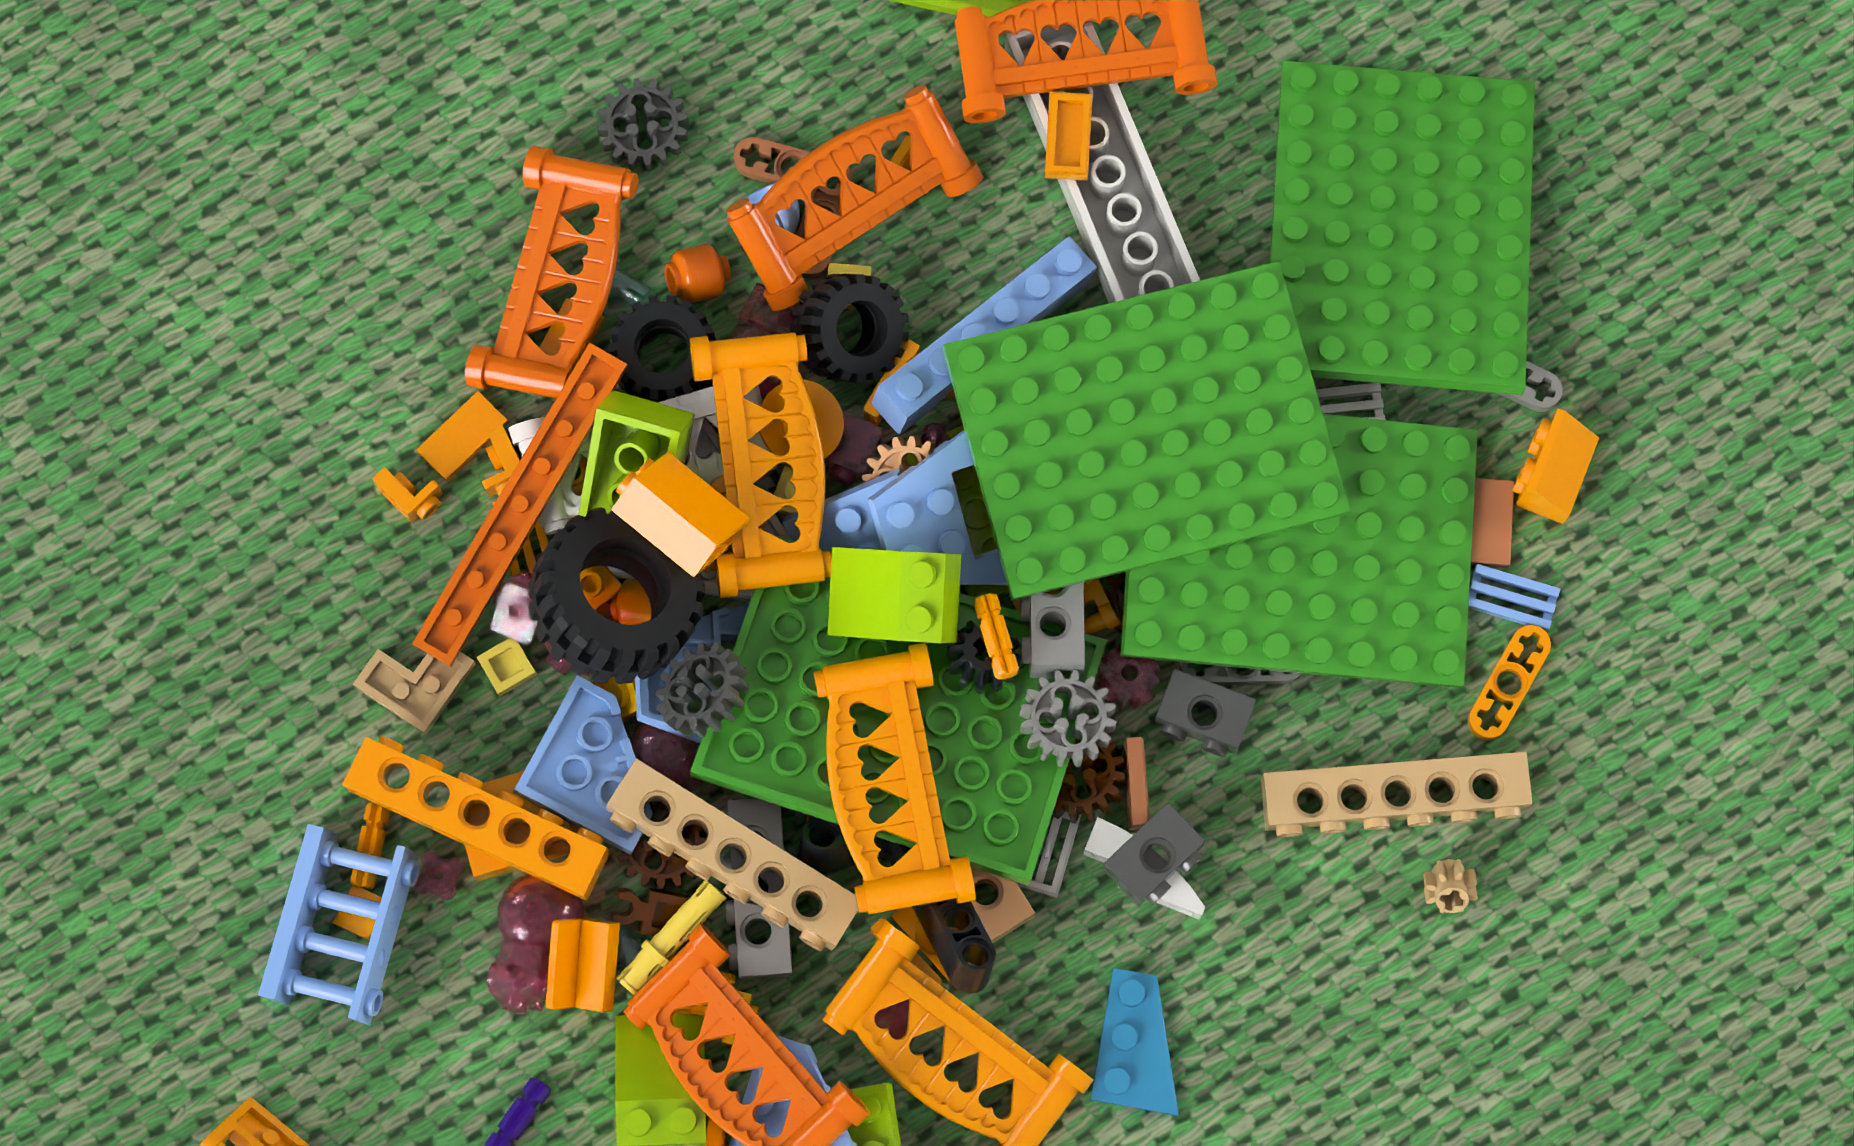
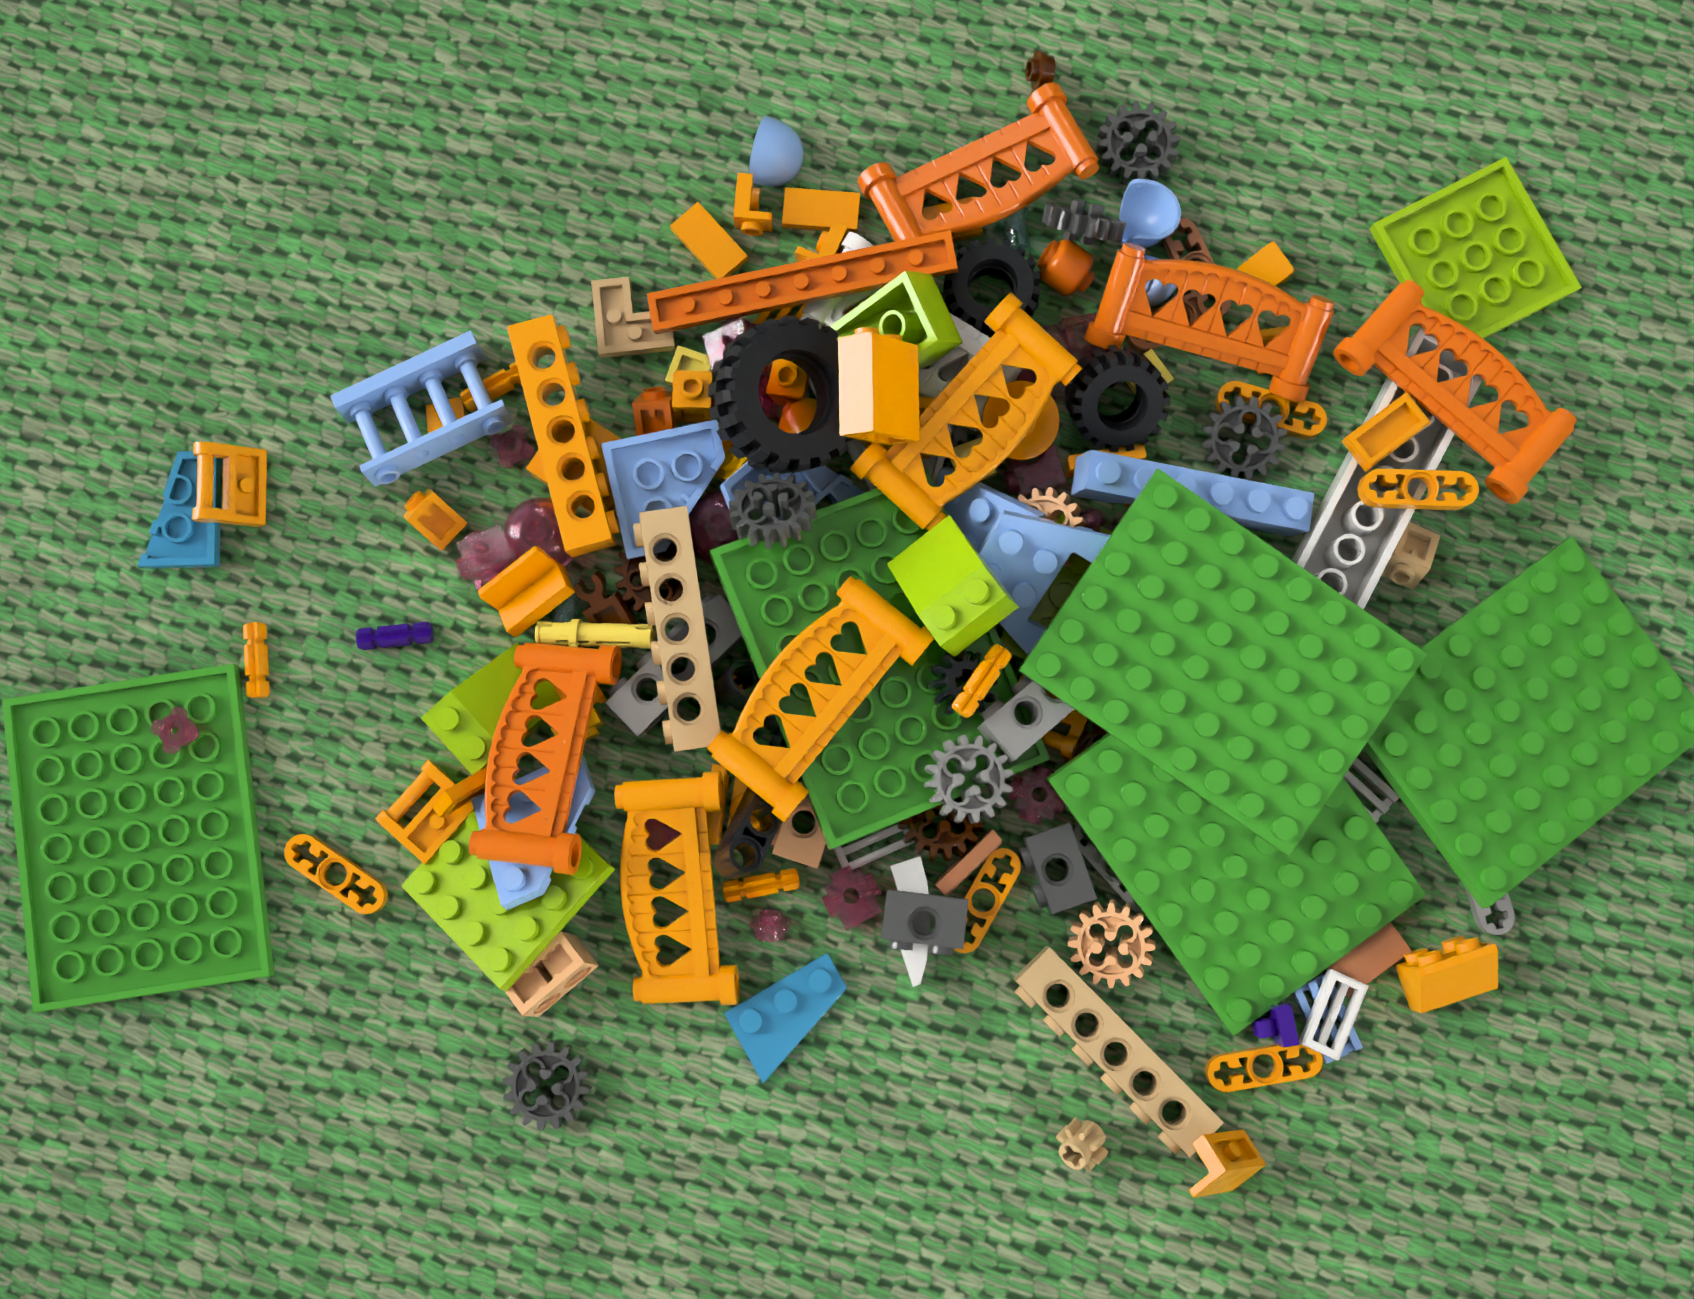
camera: 55 degrees right, 5 degrees up
(381, 431) = (775, 153): none -> light blue helmet
(406, 555) = (709, 242): none -> light orange tile
(442, 996) = (433, 518): none -> light orange bracket
(506, 150) = (1040, 69): none -> reddish brown plate
(518, 726) = (653, 411): none -> orange bracket
(535, 680) = (691, 397): none -> light orange bracket
(677, 224) = (1088, 223): none -> dark grey gear
(712, 169) = (1149, 212): none -> light blue helmet
(843, 109) = (1269, 265): none -> light orange slope
(947, 237) = (1295, 426): none -> light orange beam
(975, 228) = (1254, 457): none -> dark grey gear
(1007, 977) = (761, 885): none -> light orange axle
(1049, 996) = (770, 925): none -> clear pink plate
(1100, 901) = (859, 911): none -> clear pink brick
(1167, 137) = (1446, 479): none -> light orange beam
(1178, 764) = (1006, 879): none -> light orange beam
(1189, 201) = (1412, 556): none -> tan bracket
(1320, 702) = (1134, 944): none -> light nougat gear
(1485, 640) = (1278, 1024): none -> dark purple tile
(1529, 621) = (1318, 1008): none -> white tile
(1565, 773) = (1229, 1159): none -> light orange panel

